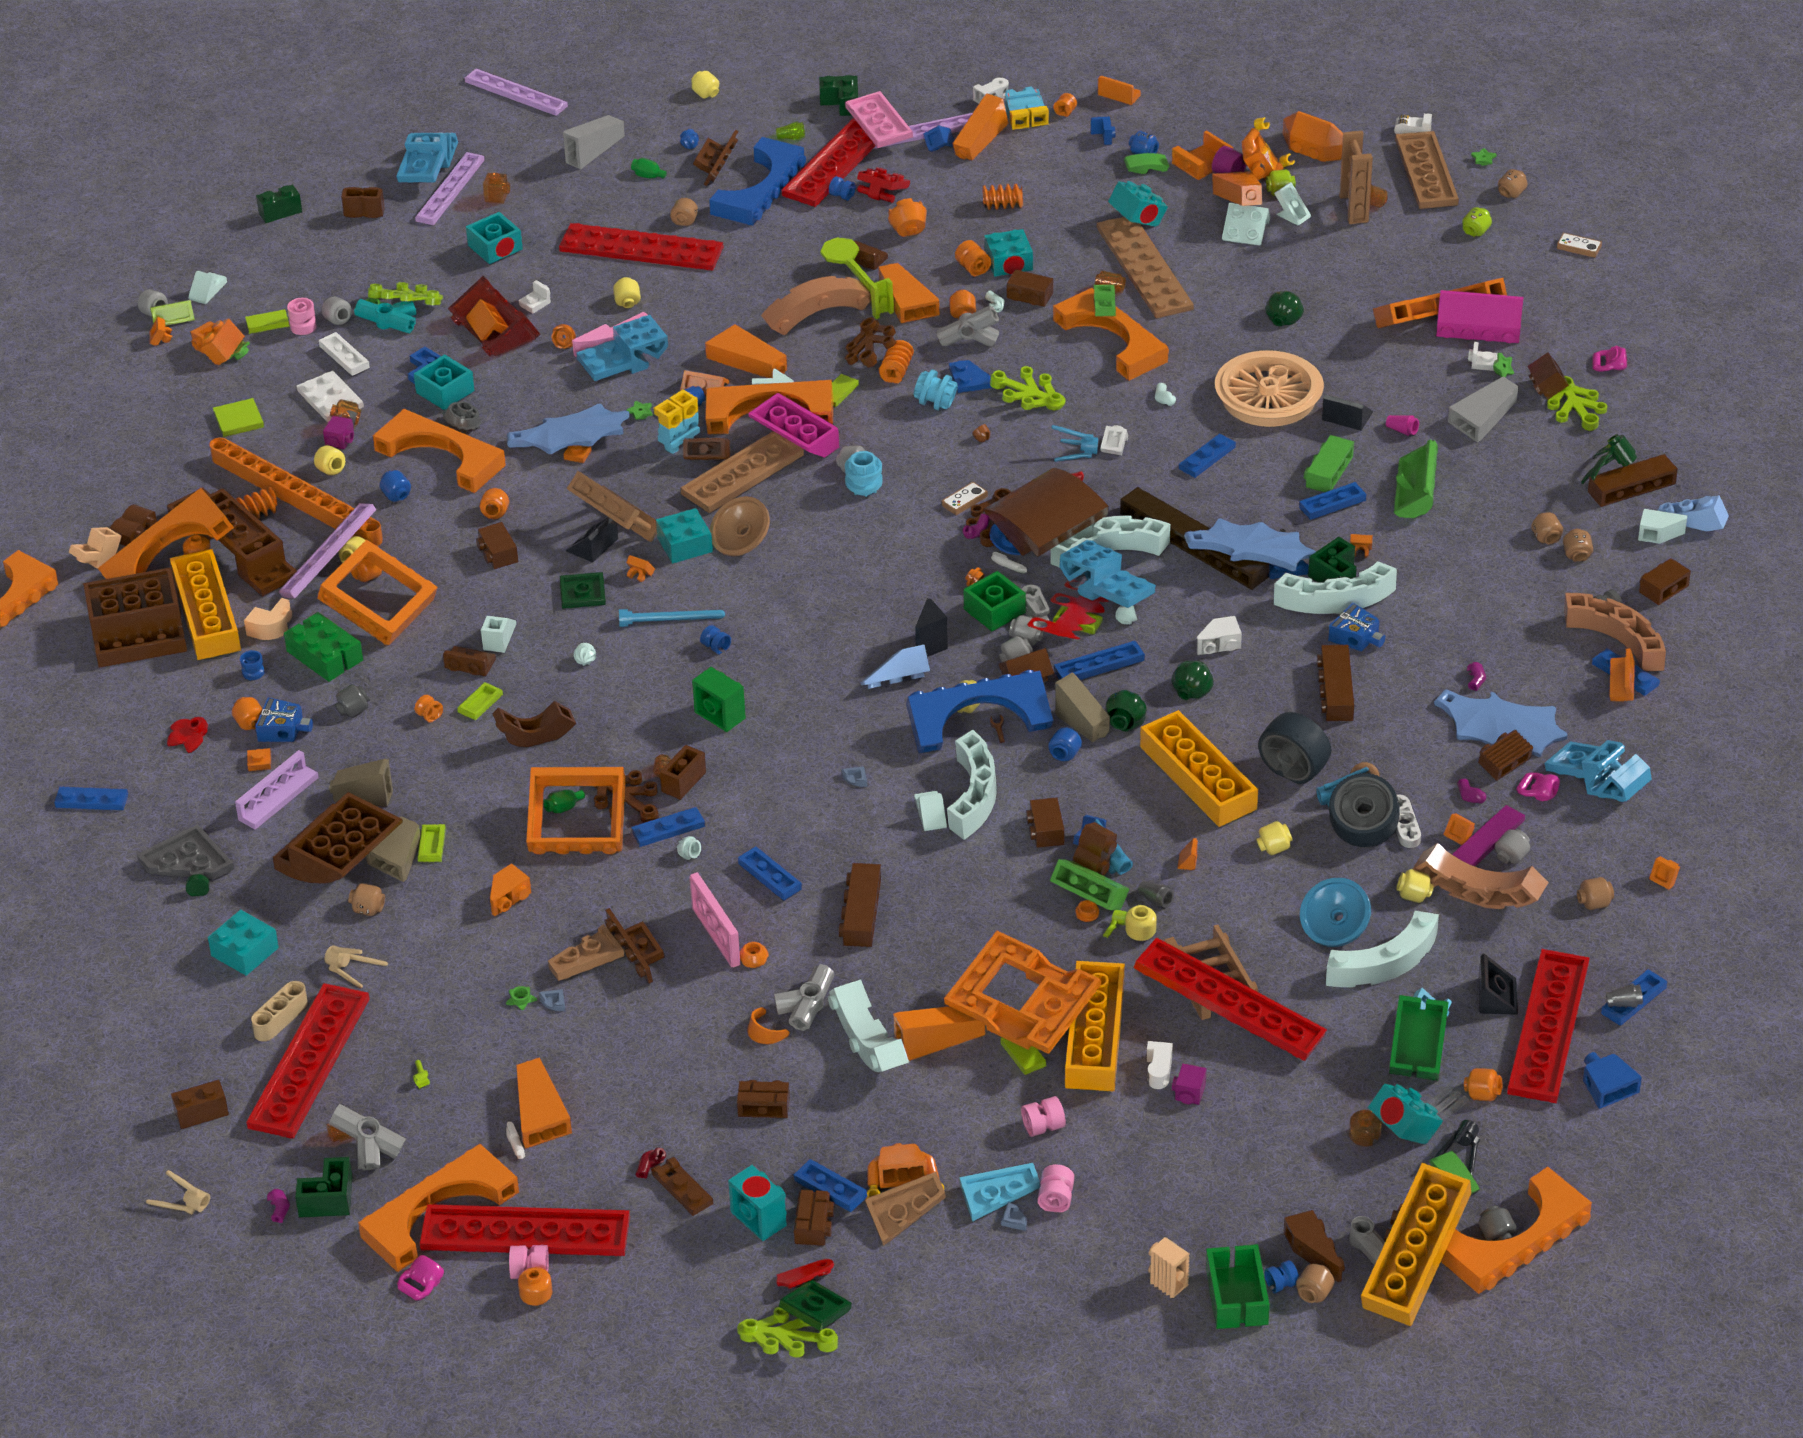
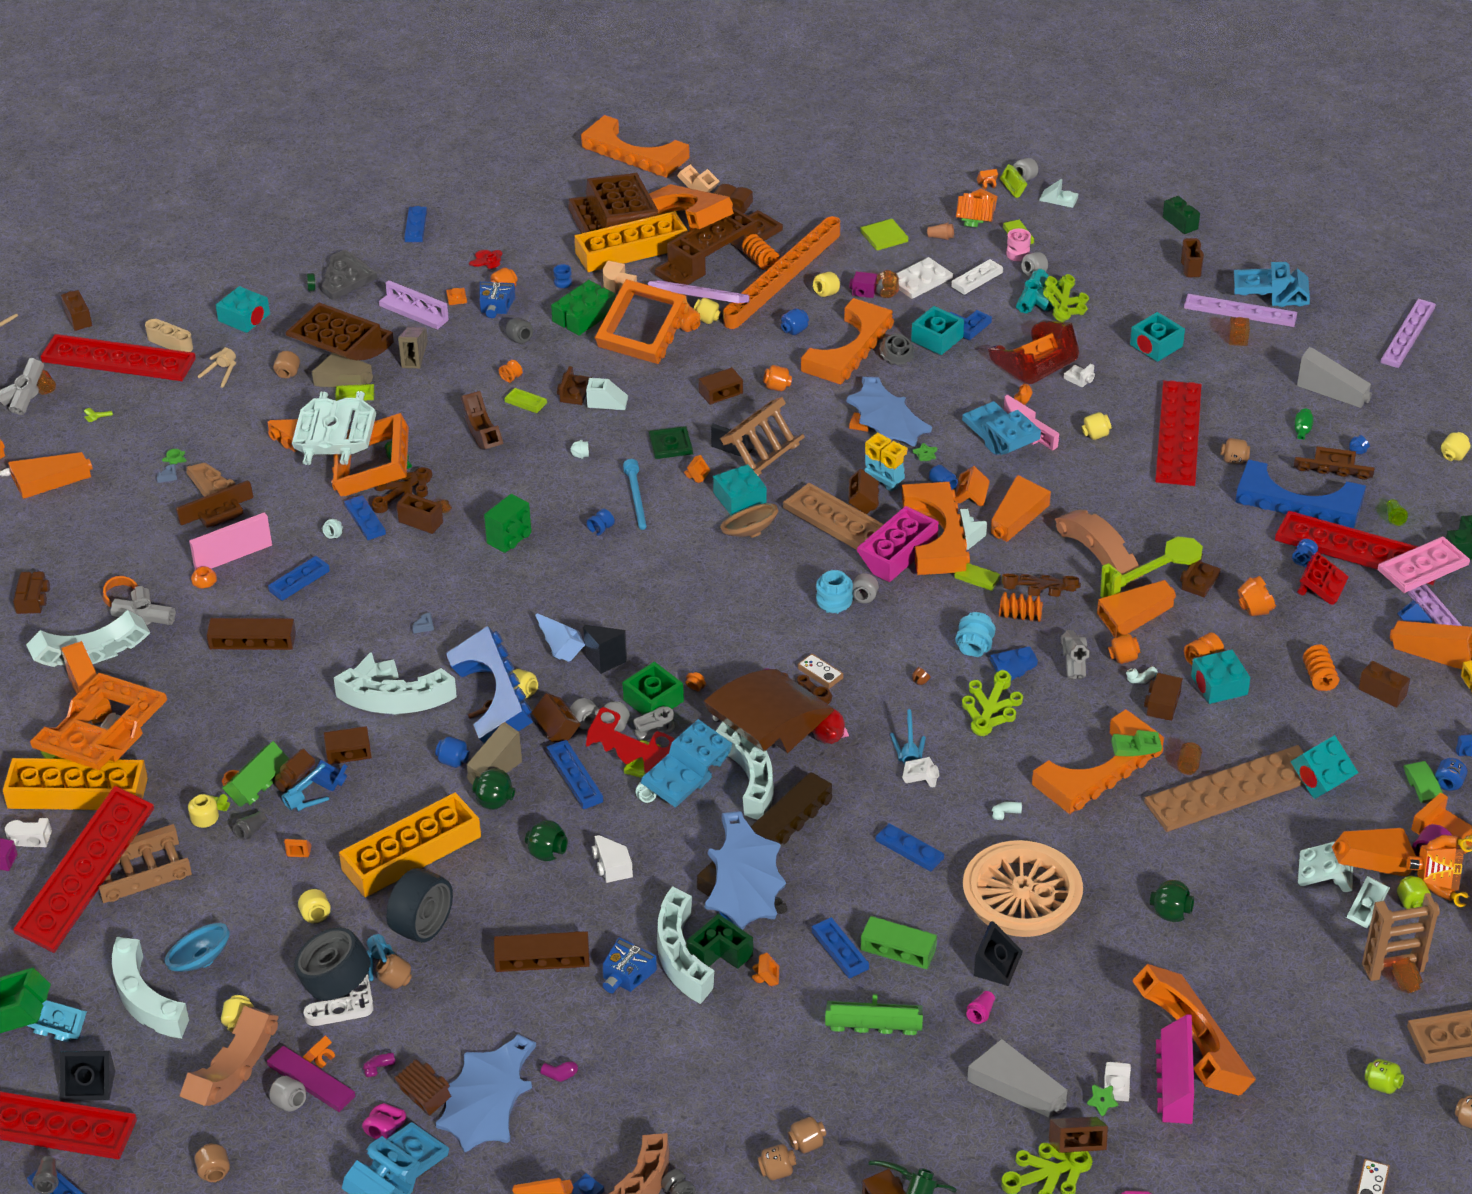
camera: 85 degrees right, 0 degrees up
(251, 371) = (941, 231): none -> nougat cone
(527, 806) = (316, 437): none -> light aqua piece
(1028, 164) = (1384, 684): none -> reddish brown brick

